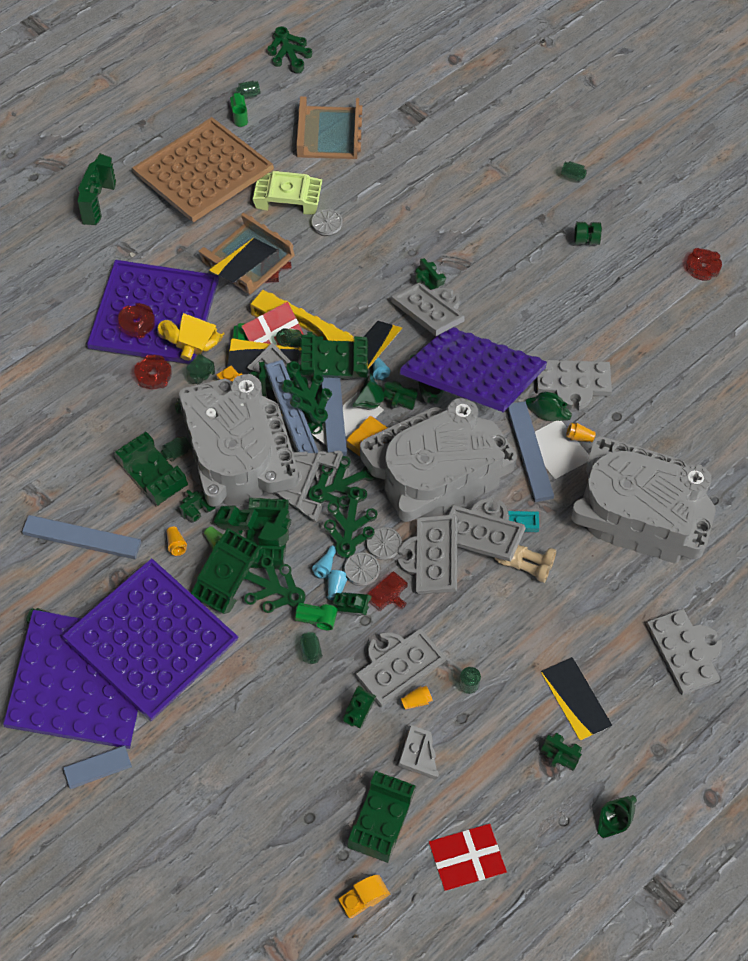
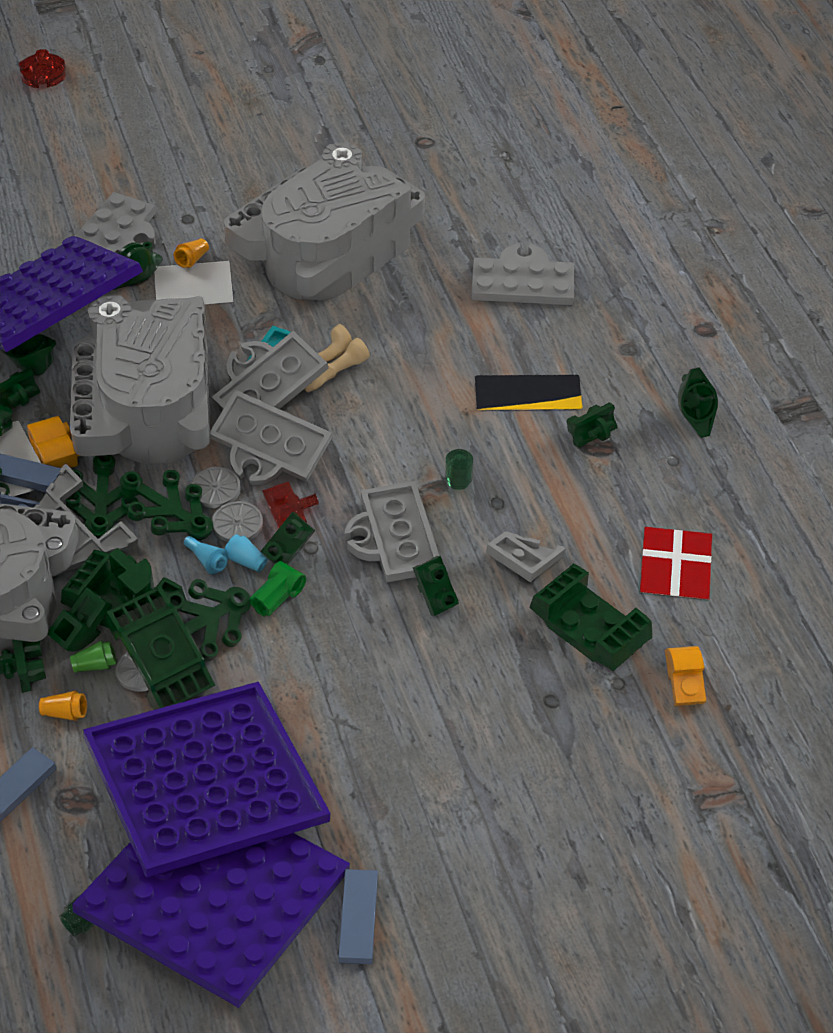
camera: 65 degrees left, 10 degrees down
(310, 648) = (321, 610): clear green brick -> none
(417, 698) = (451, 528): light orange cone -> none
(530, 452) = (216, 311): sand blue tile -> none

